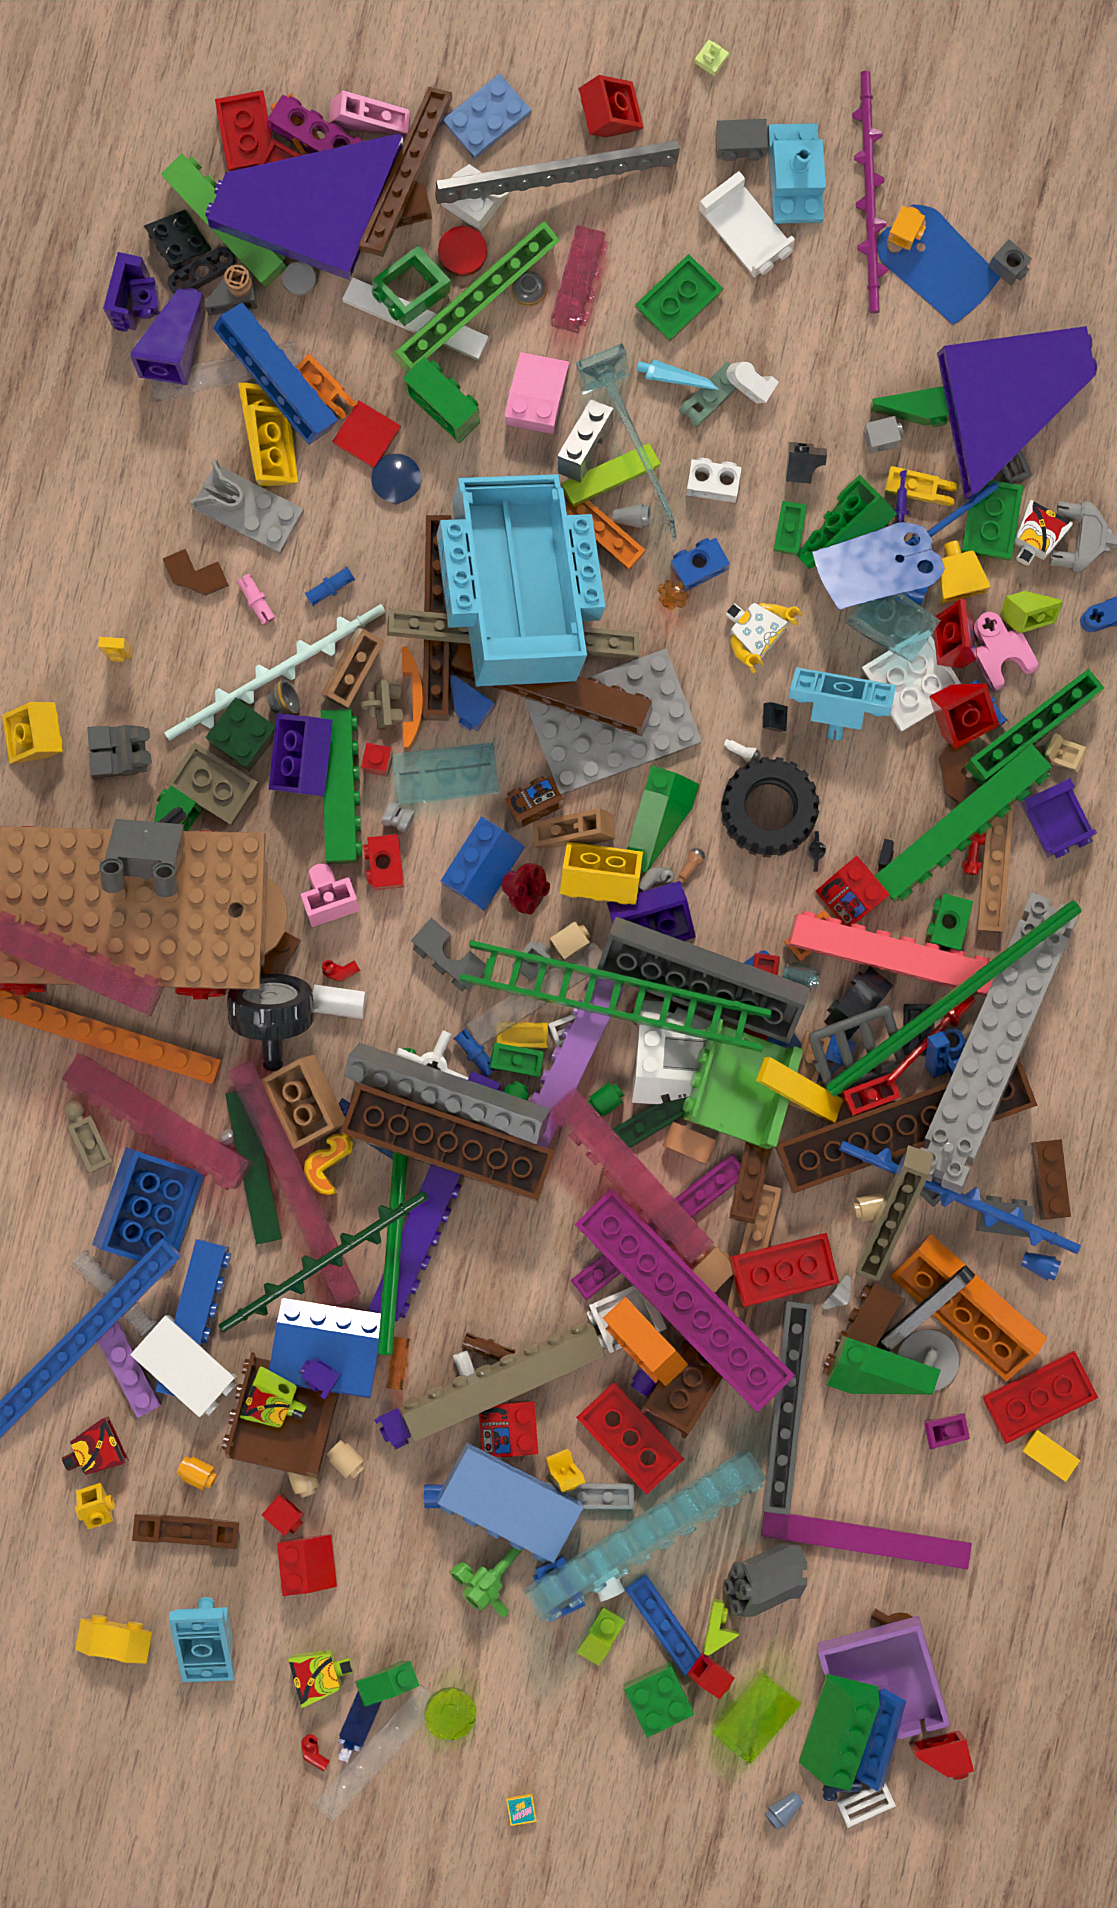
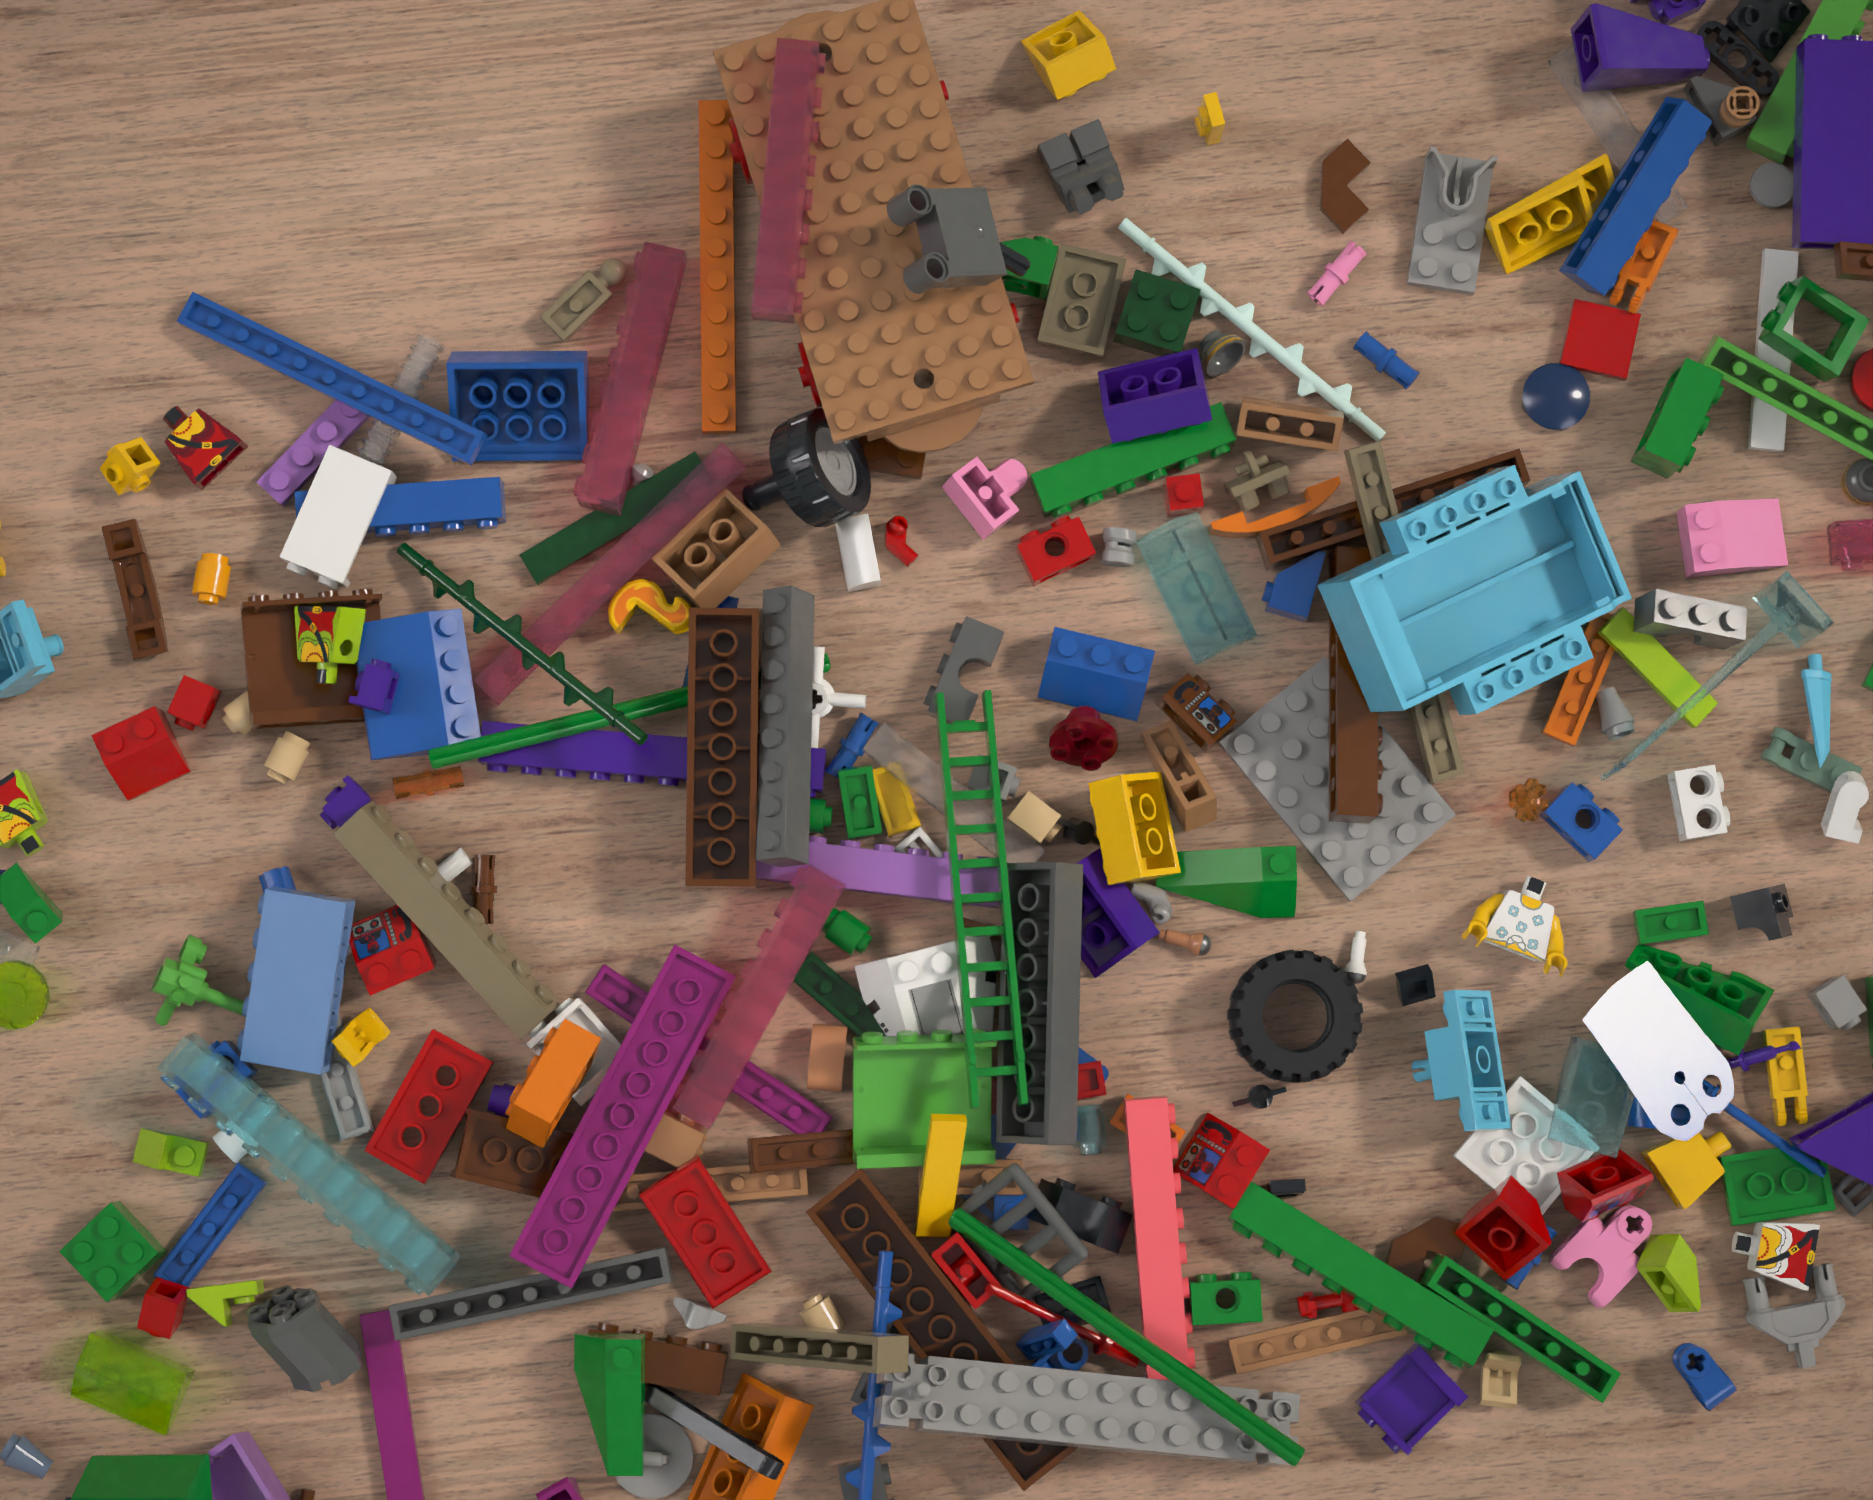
camera: 65 degrees right, 0 degrees up
(589, 913) = (1079, 831): none -> black piece

